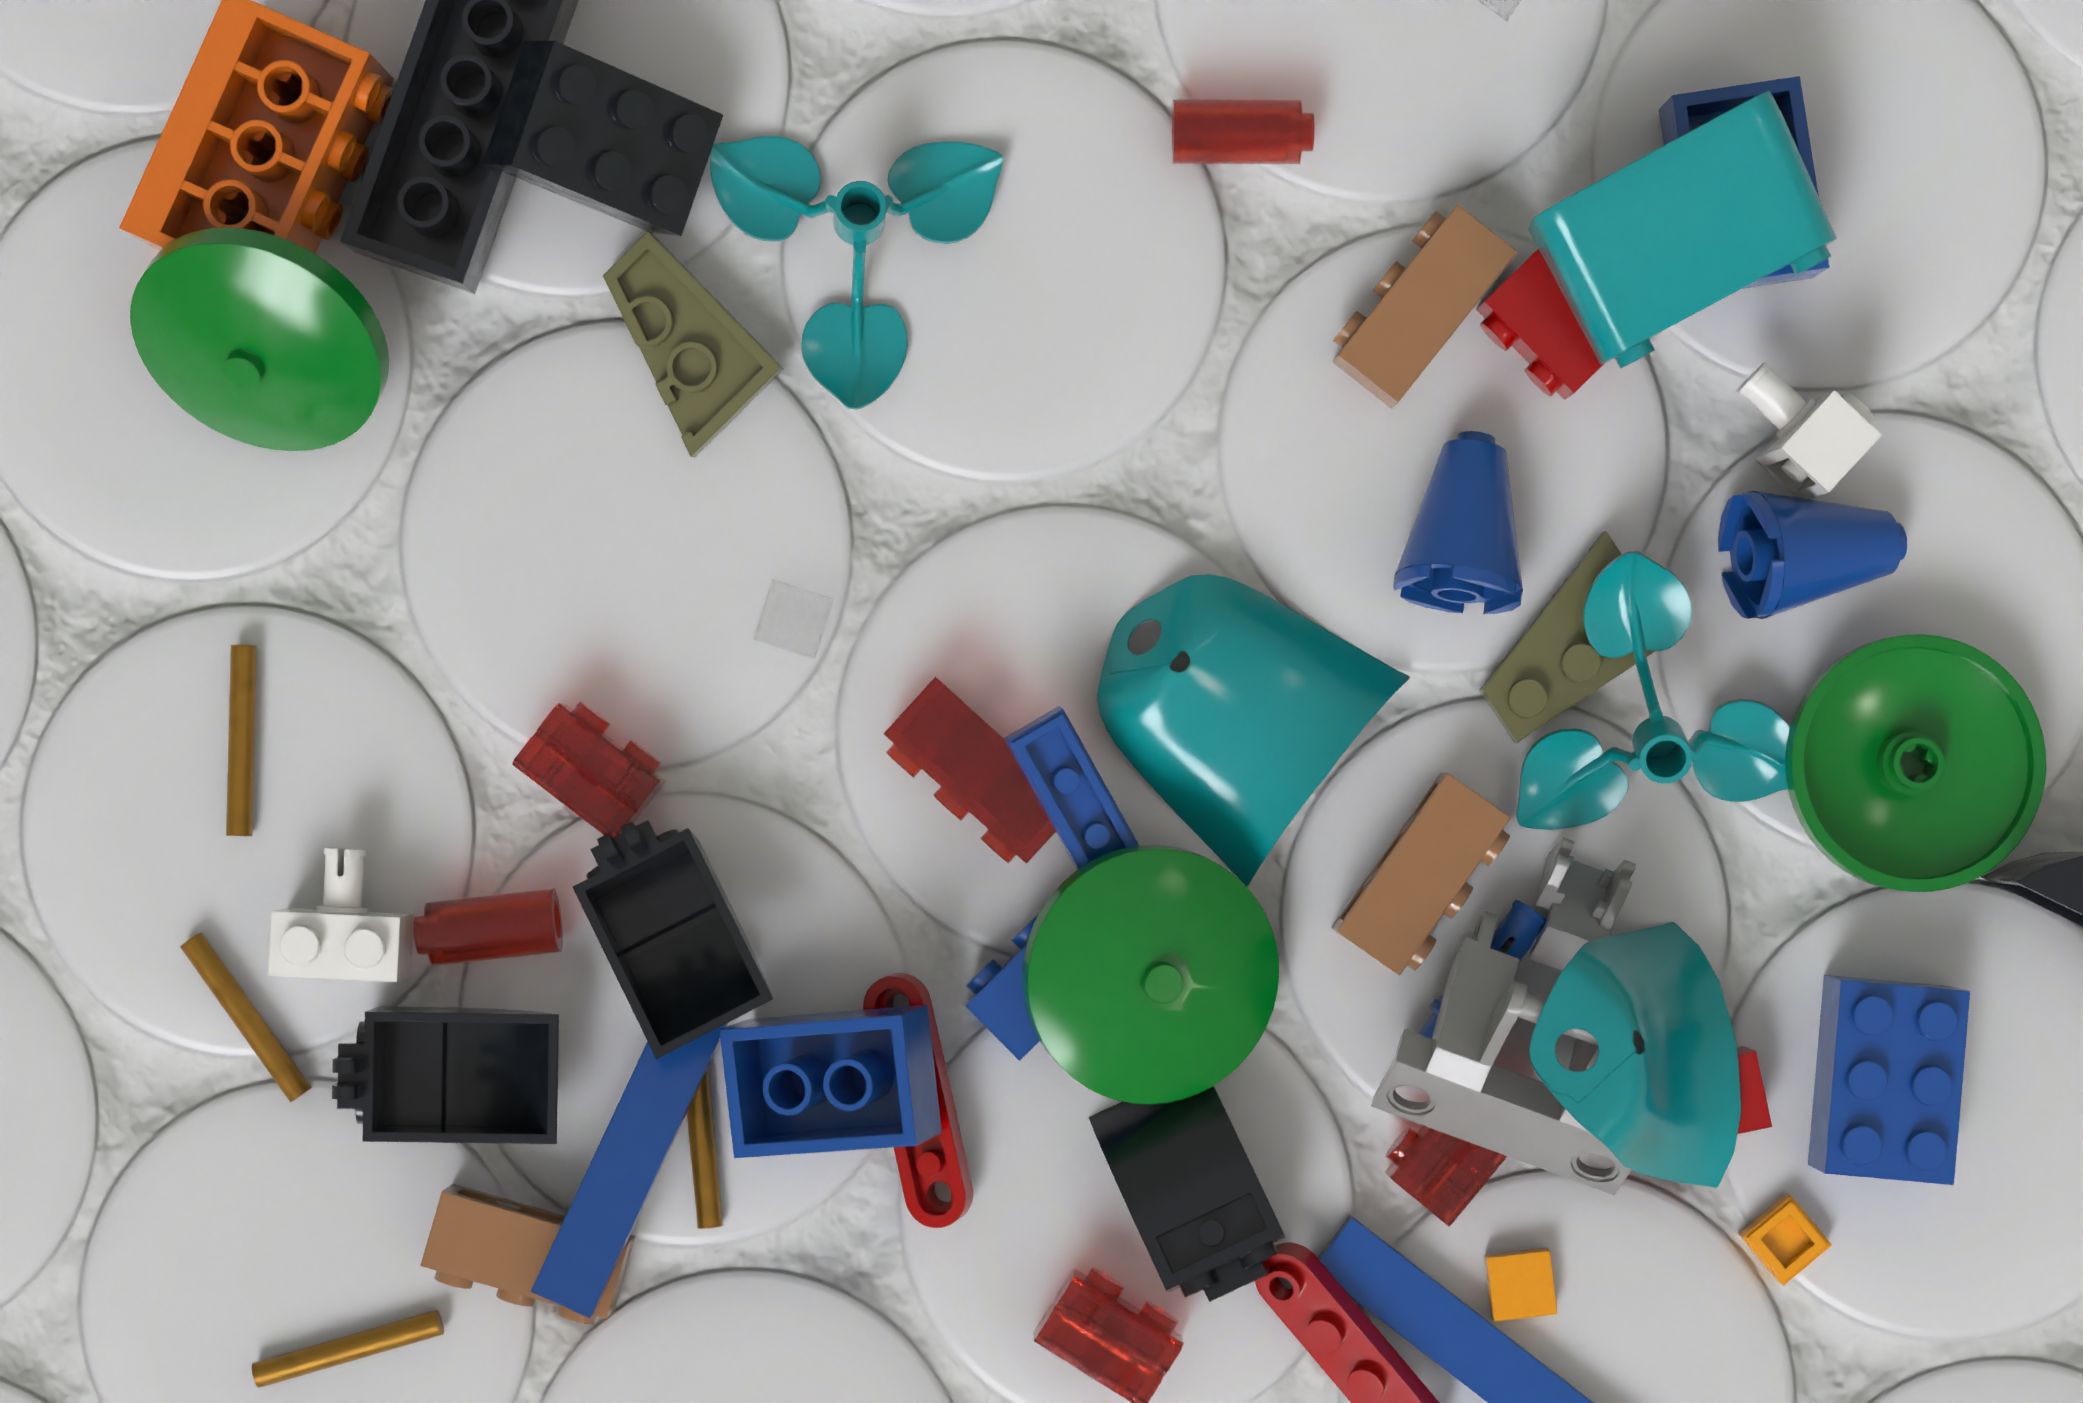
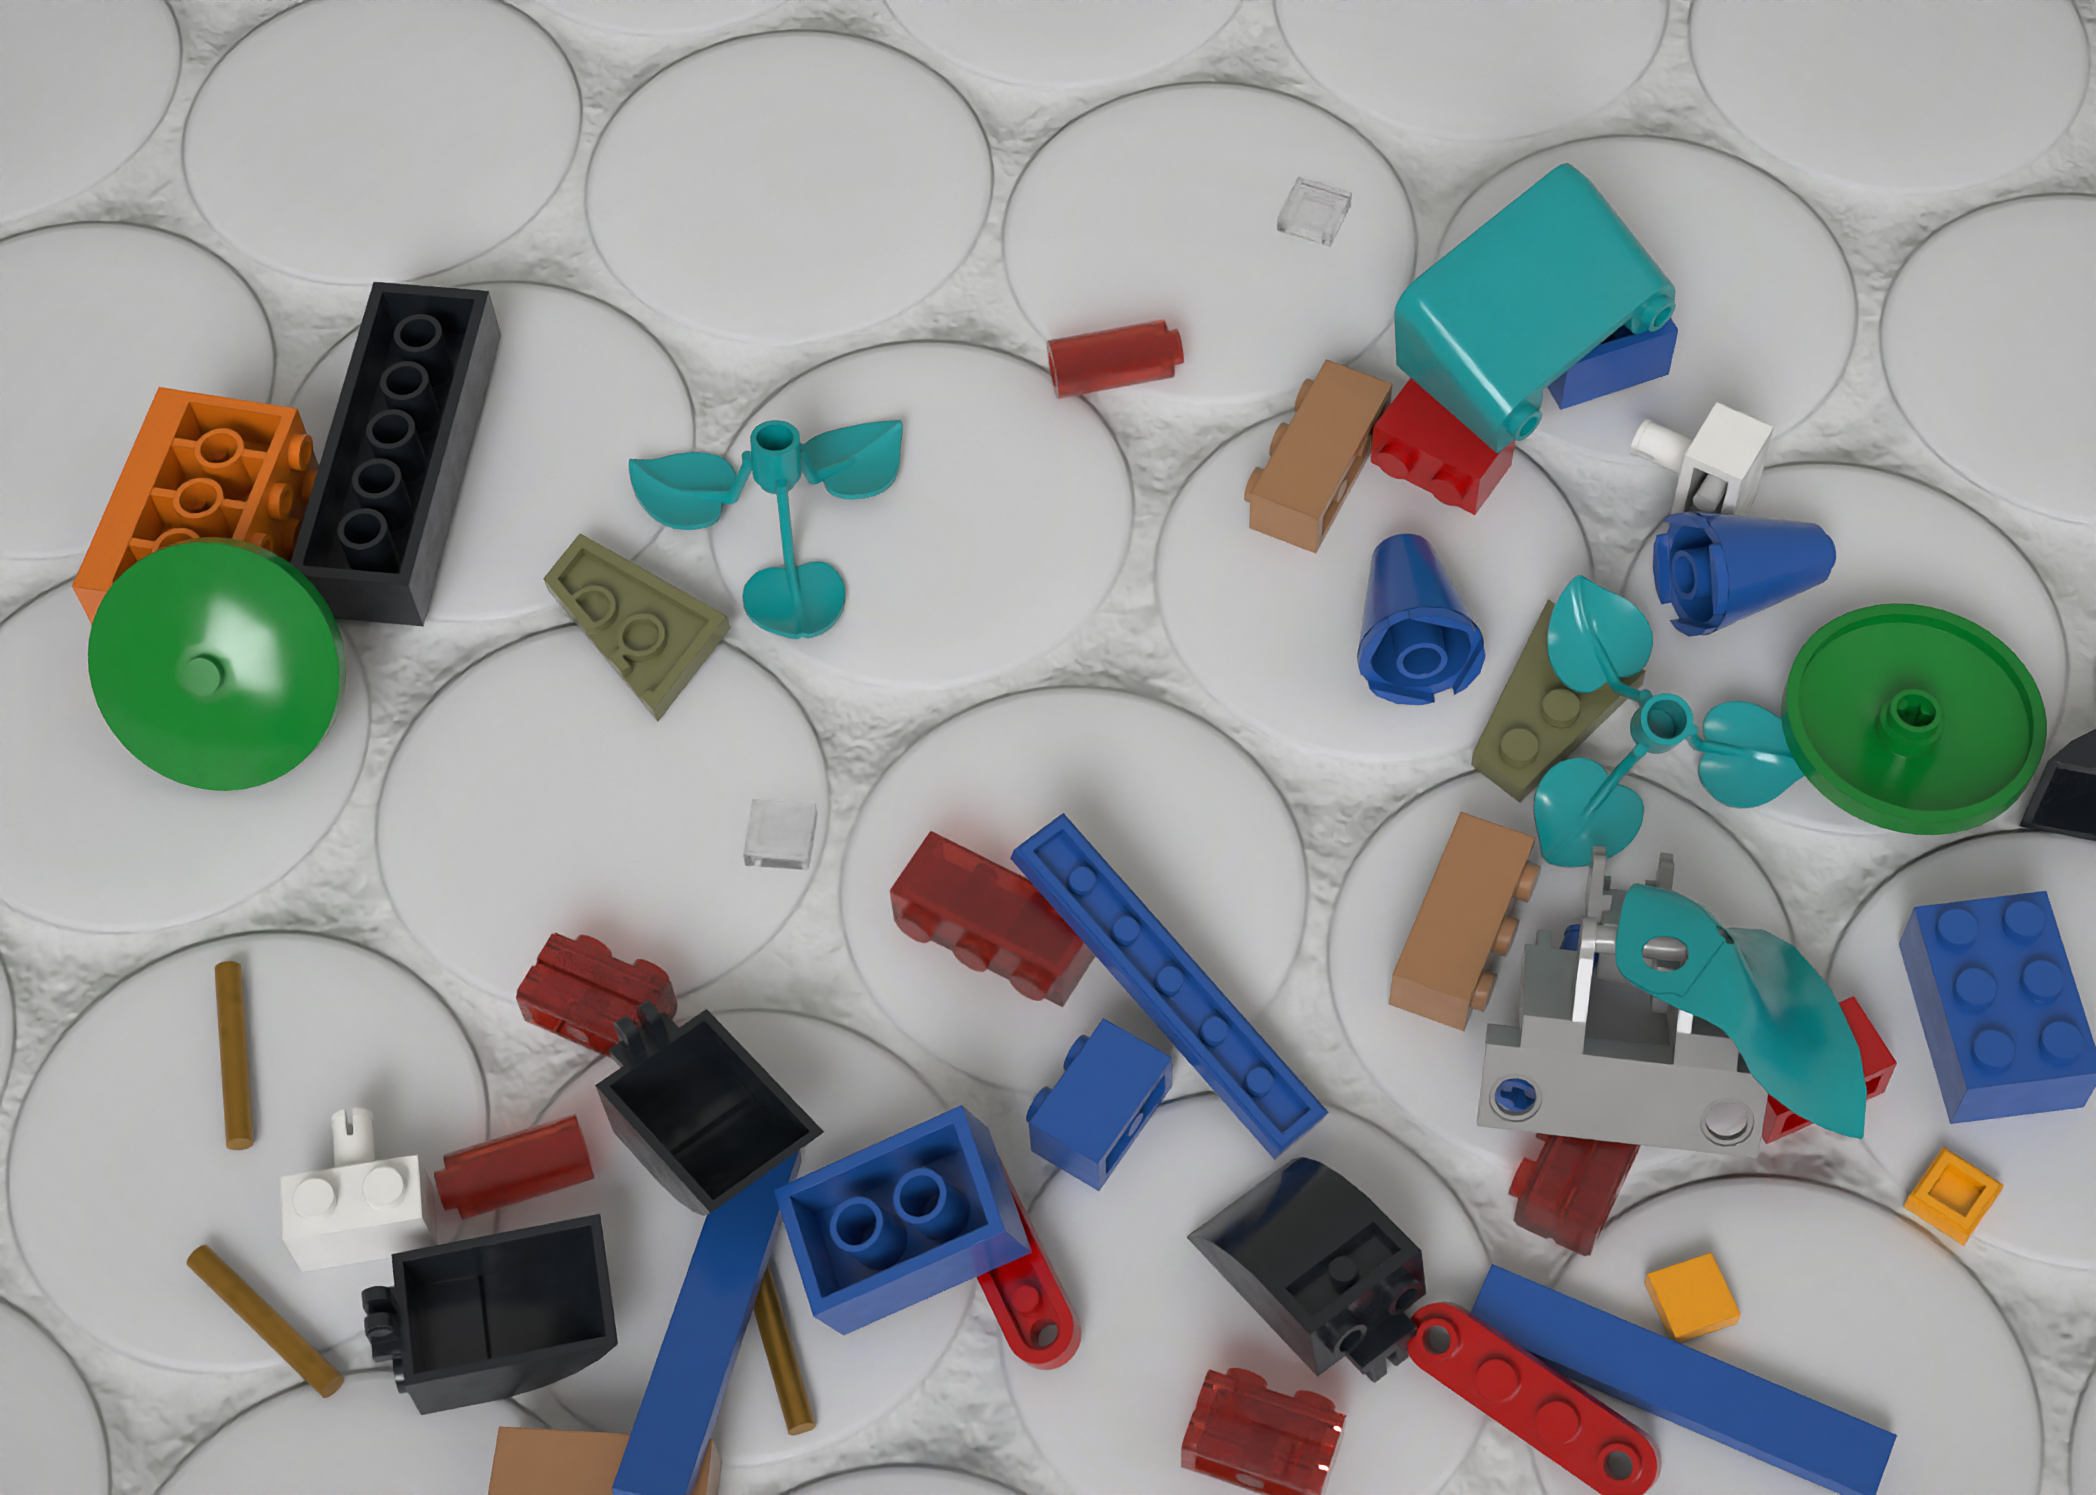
camera: 10 degrees left, 30 degrees down
(603, 137) = (525, 450): black brick -> none
(1150, 974) = (1213, 1052): green dish -> none
(1250, 718) = (1235, 829): teal piece -> none

